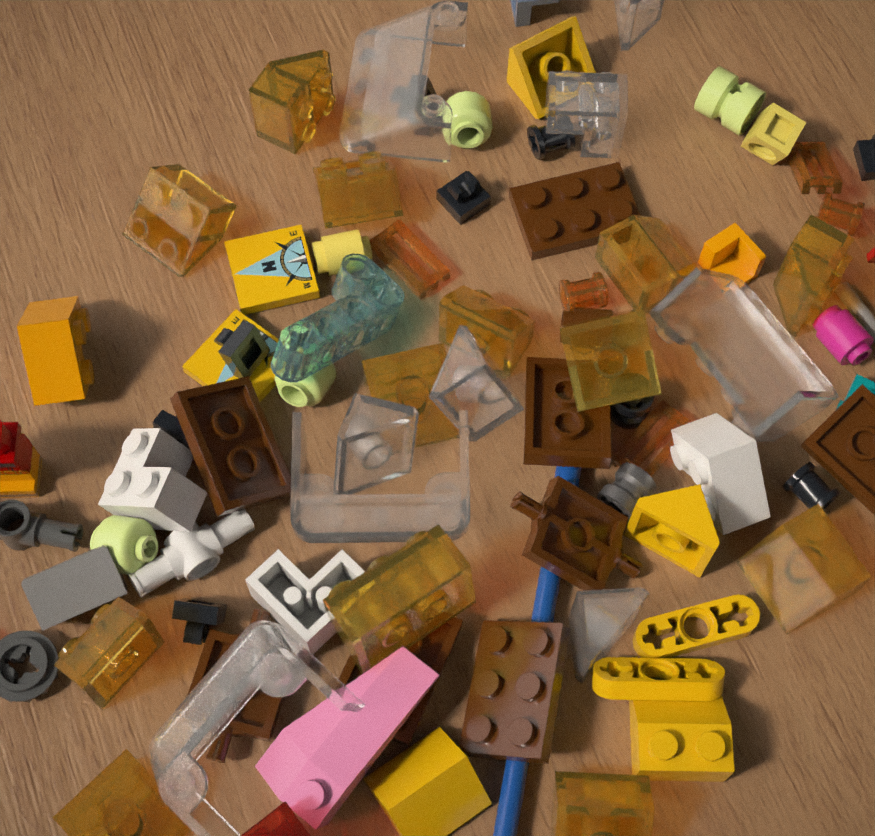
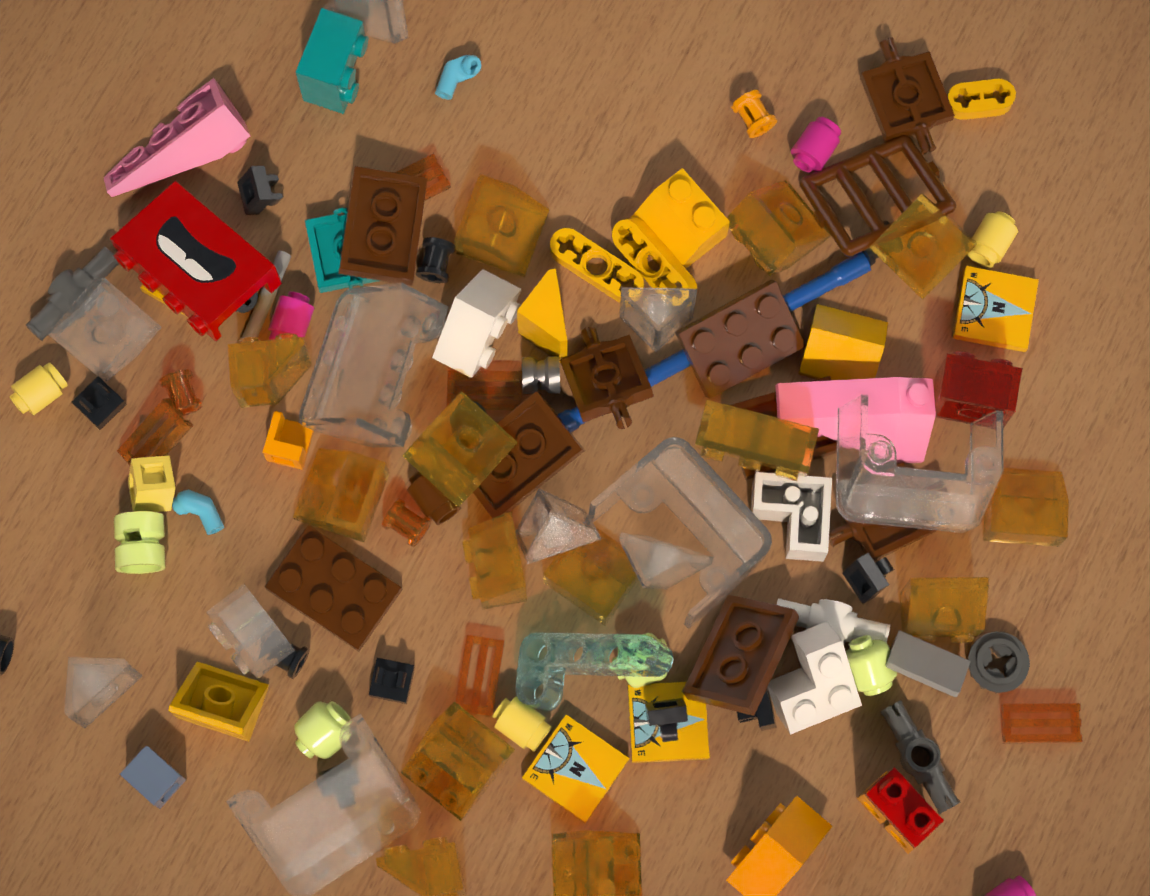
camera: 130 degrees left, 10 degrees up
(727, 166) = (201, 505): none -> medium azure arm

